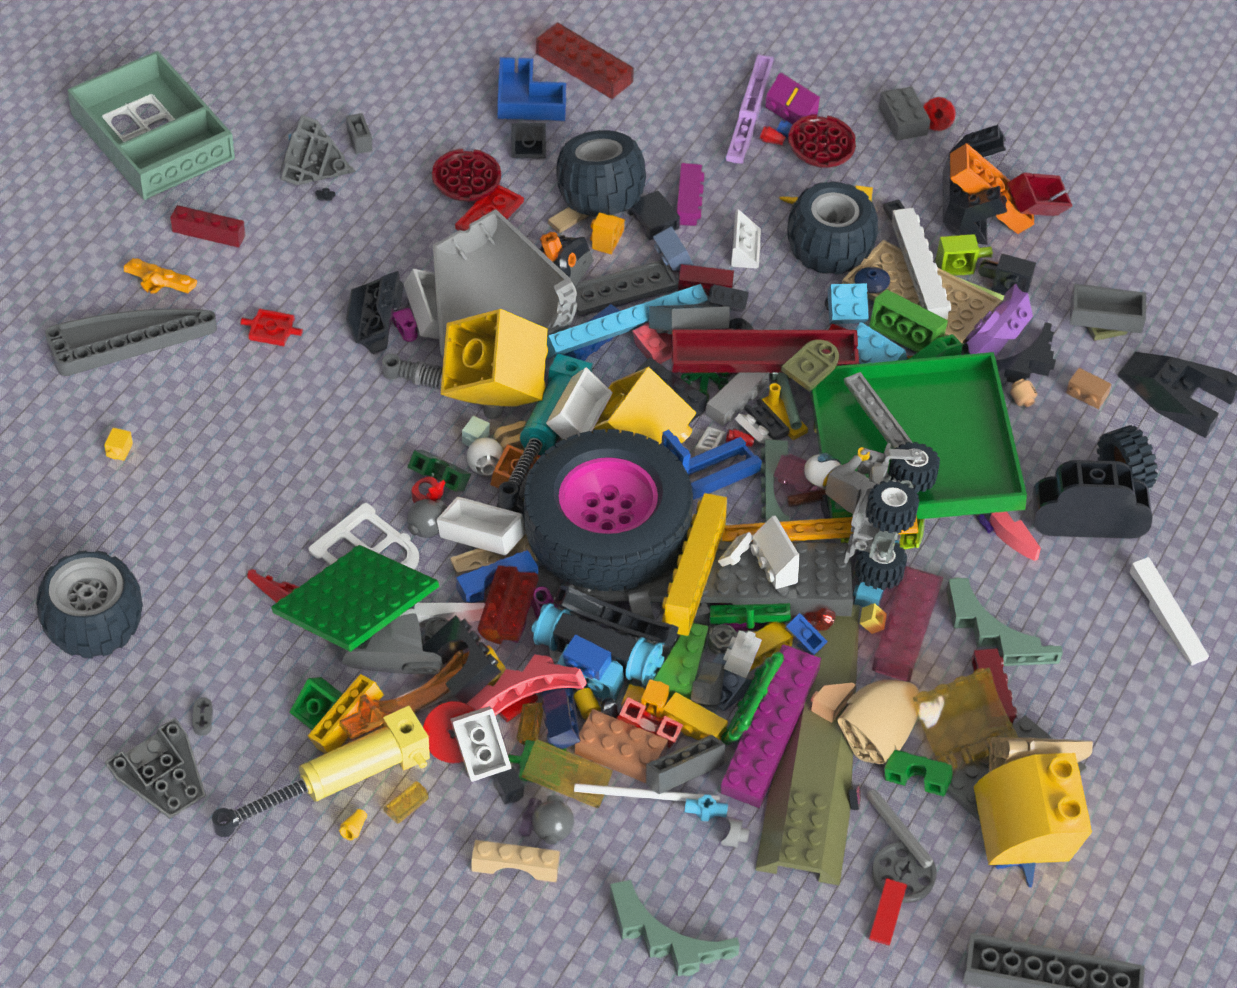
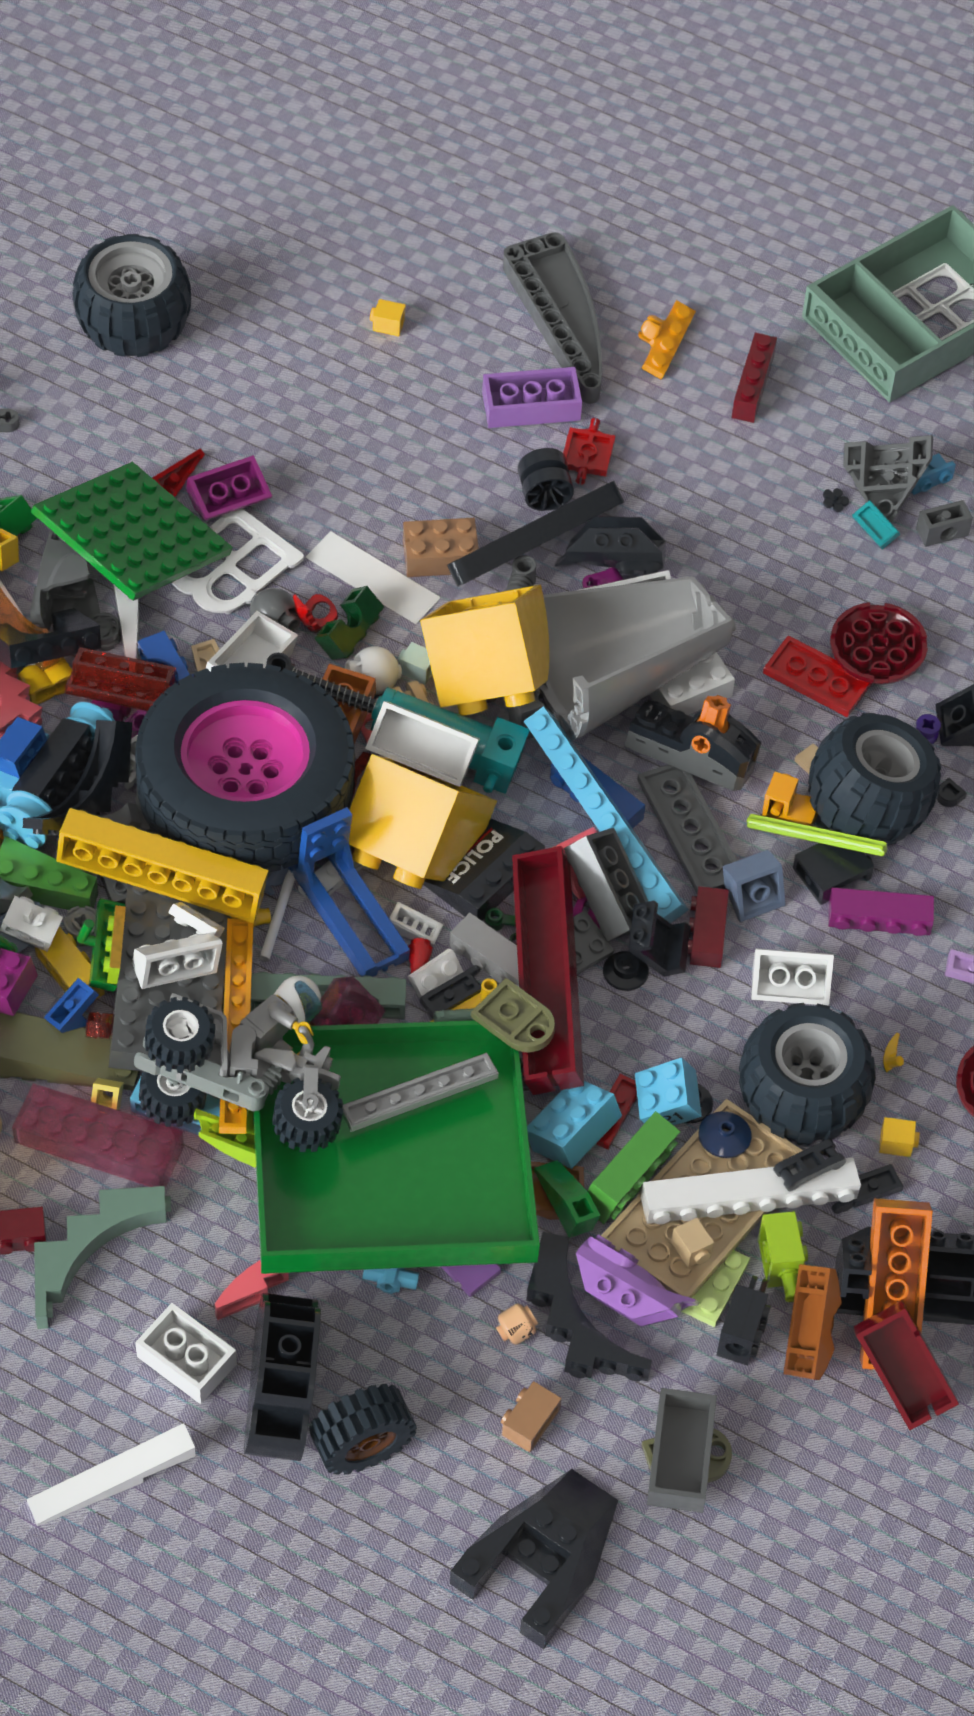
camera: 90 degrees right, 5 degrees up
(218, 354) = (532, 397): none -> medium lavender brick
(301, 347) = (545, 479): none -> black wheel
(301, 546) = (227, 488): none -> magenta slope
(352, 172) = (876, 524): none -> teal tile
(361, 353) = (535, 533): none -> black beam
(362, 413) = (435, 543): none -> medium nougat piece
(383, 464) = (362, 569): none -> white sticker
(536, 160) = (933, 724): none -> dark purple wheel
(635, 215) = (817, 834): none -> lime axle
(759, 598) = (114, 944): none -> plate
(906, 226) = (809, 1164): none -> black plate
(964, 291) = (692, 1242): none -> tan brick
(1013, 237) = (812, 1322): none -> dark orange slope
(1075, 567) = (186, 1353): none -> white brick

